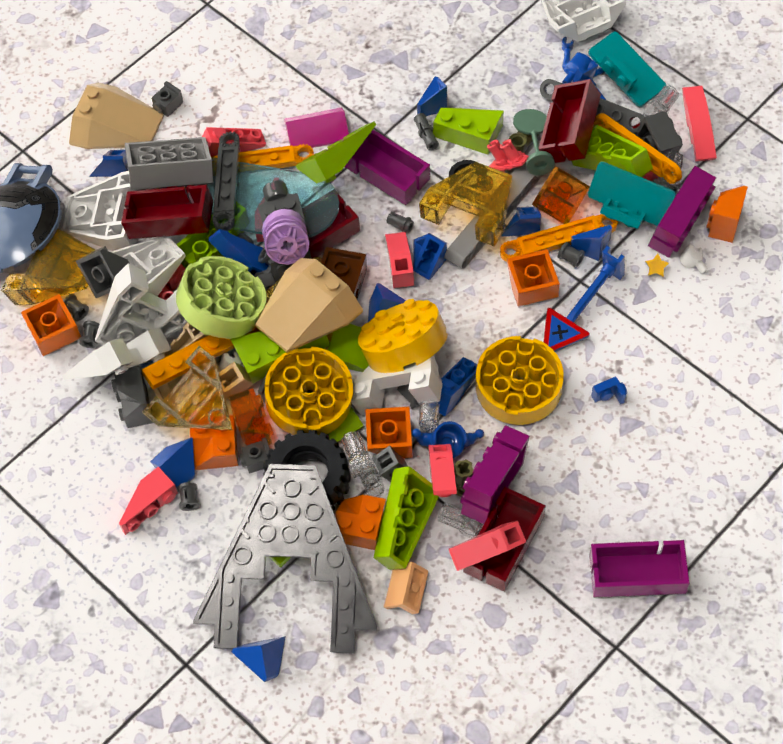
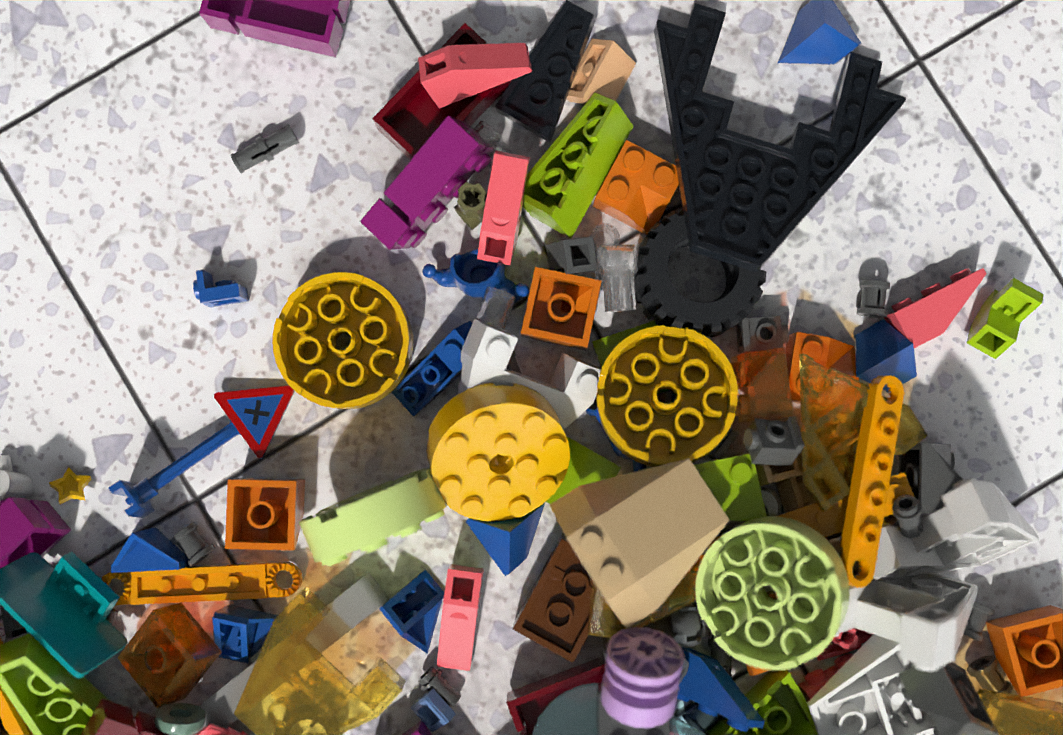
camera: 165 degrees left, 25 degrees up
(103, 502) = (1000, 317): none -> lime brick
(144, 357) = (908, 511): none -> dark grey pin
(174, 372) = (871, 479): none -> light orange plate
(229, 384) = (773, 441): none -> dark grey brick
(400, 209) = (432, 710): none -> medium blue tile
(439, 581) = (539, 96): none -> black wing
(465, 282) = (373, 516): none -> yellowish green brick
(613, 483) = (264, 148): none -> dark grey pin

